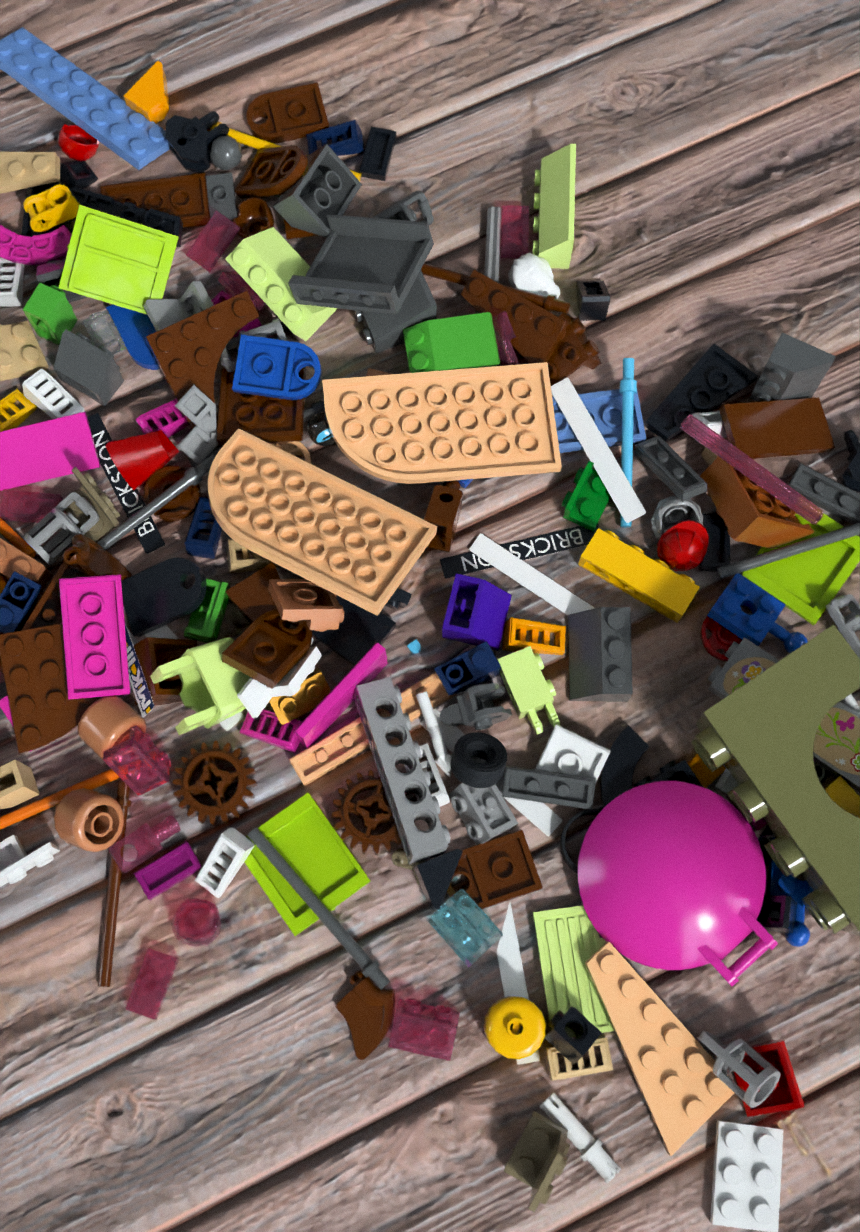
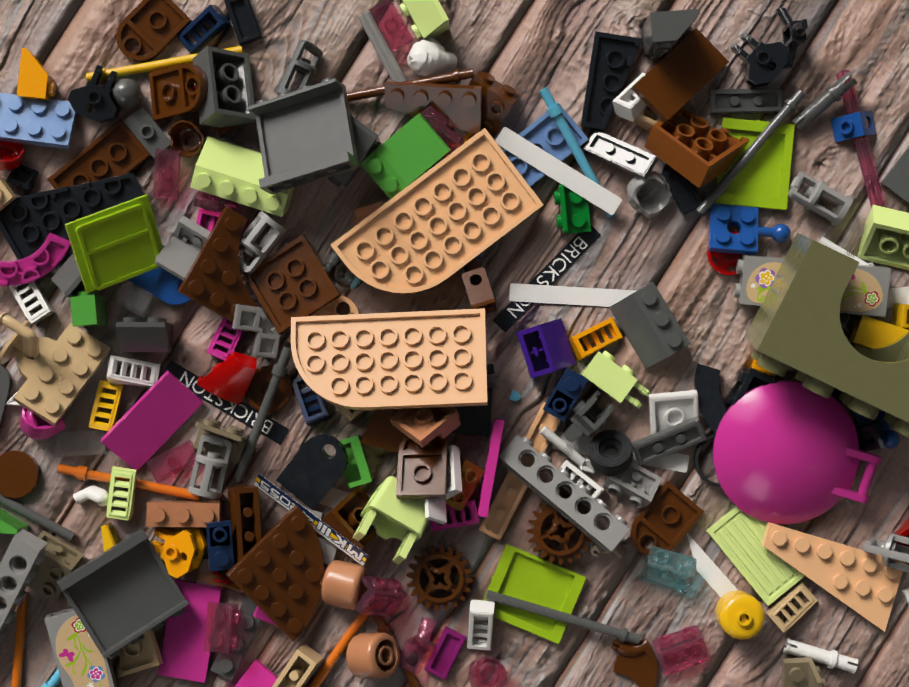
camera: 30 degrees left, 15 degrees up
(52, 206) = (27, 231): yellow piece -> none
(93, 558) = (252, 476): reddish brown arm -> none
(94, 636) = (294, 533): dark pink tile -> none
(273, 368) = (286, 256): blue tile -> none
(436, 876) = (631, 549): black slope -> none
(584, 1031) = (788, 591): black brick -> none
(592, 300) = (482, 46): black slope -> none
(638, 574) = (643, 249): yellow brick -> none
(683, 545) = (663, 209): red piece -> none
(751, 469) = (685, 125): clear pink axle -> none

